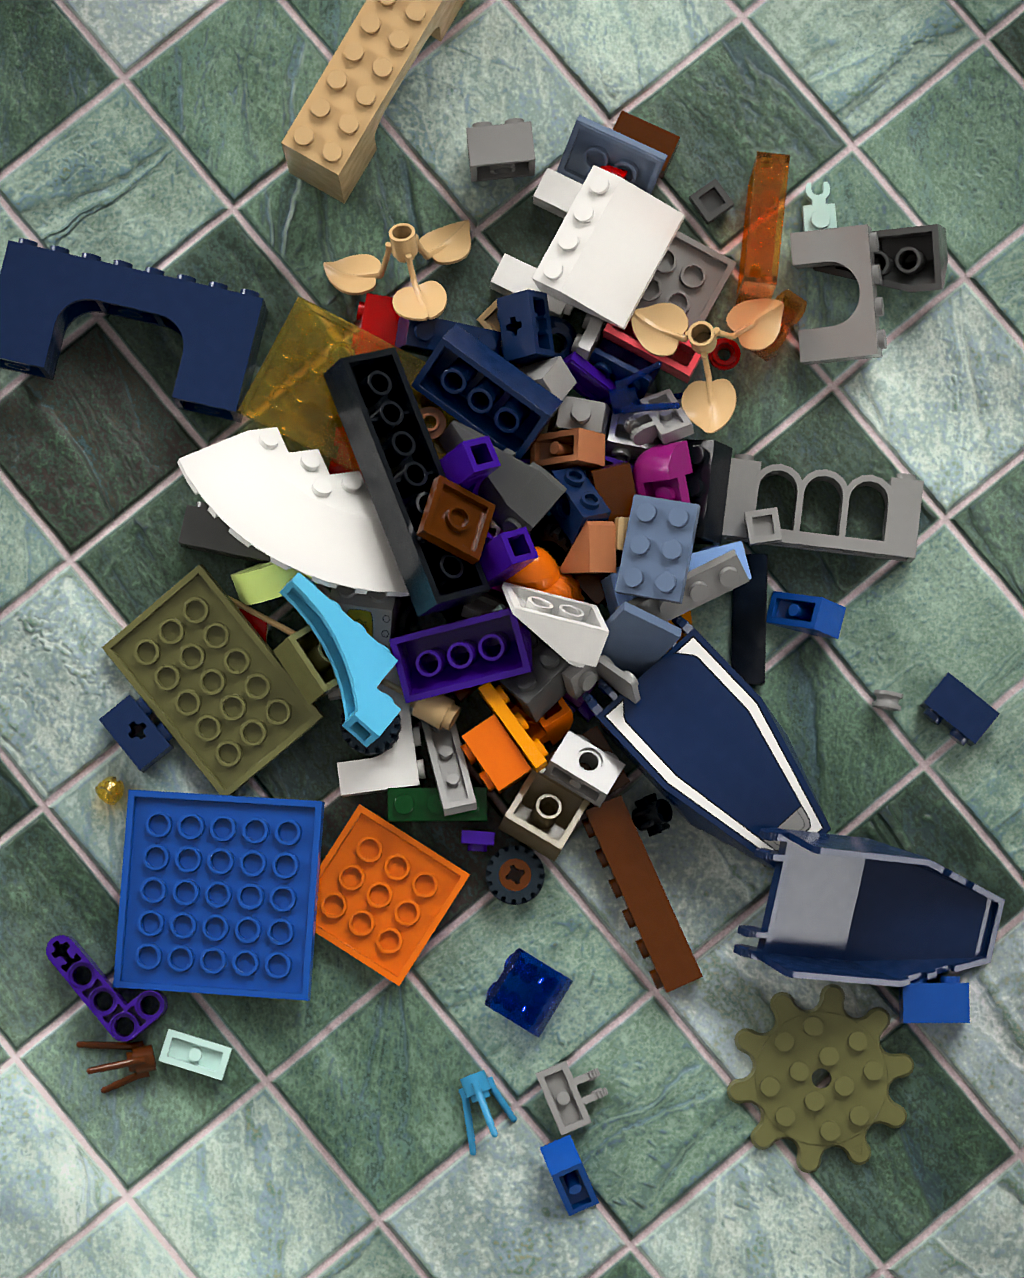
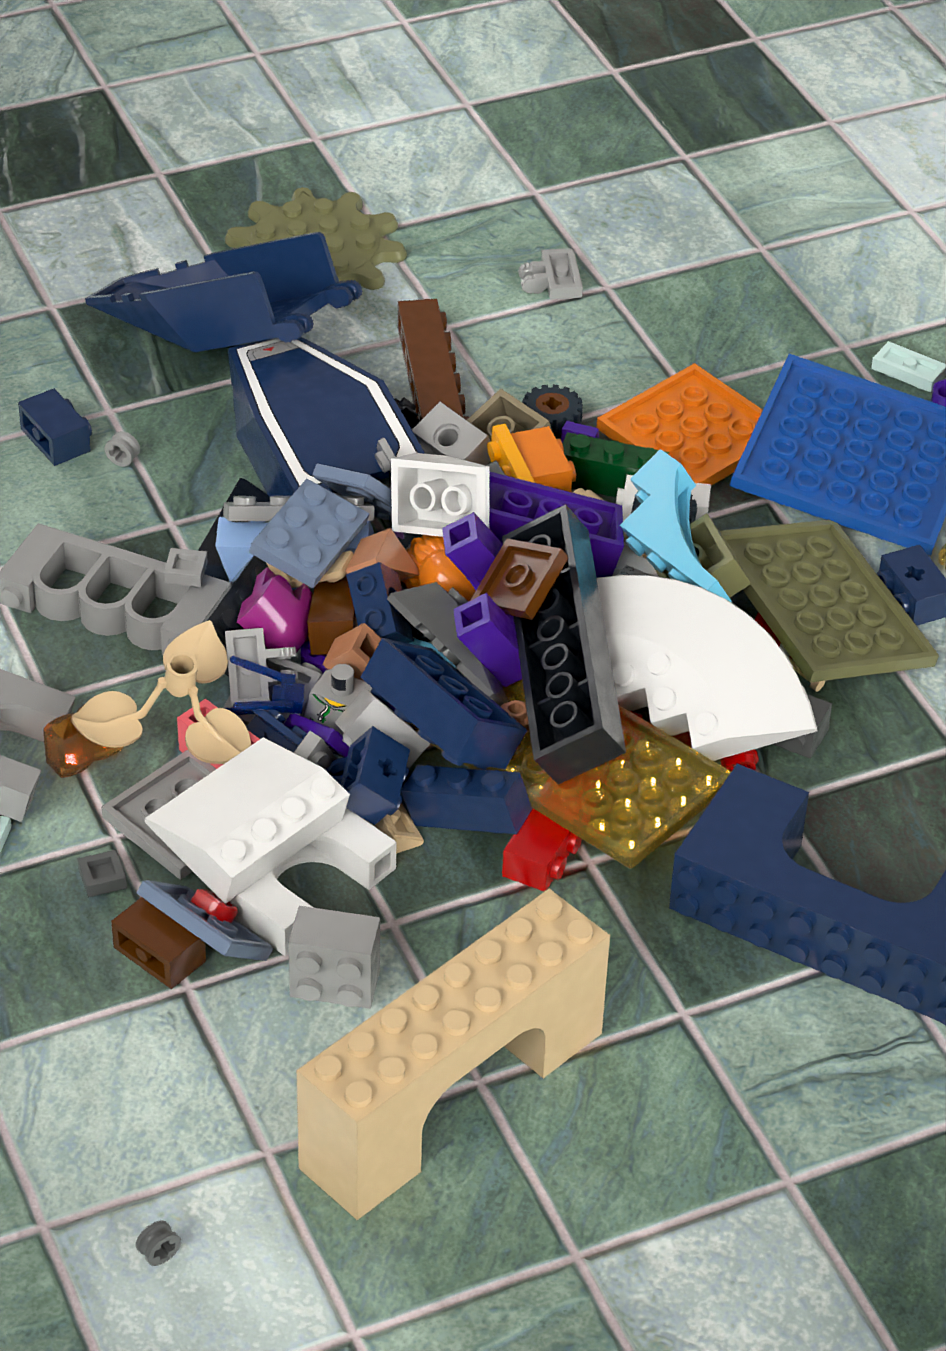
camera: 165 degrees left, 40 degrees down
(418, 303) = (487, 805): tan plant -> none
(449, 769) = (593, 454): light grey plate -> none
(477, 1089) = (641, 294): dark azure plant -> none
(527, 992) = (566, 331): clear blue bracket -> none
(569, 1175) = (576, 227): blue slope -> none
(734, 350) = (154, 742): red plate -> none
(762, 227) = (42, 850): clear orange window -> none
(806, 614) = (170, 518): blue slope -> none
(935, 1001) = (178, 245): blue brick -> none

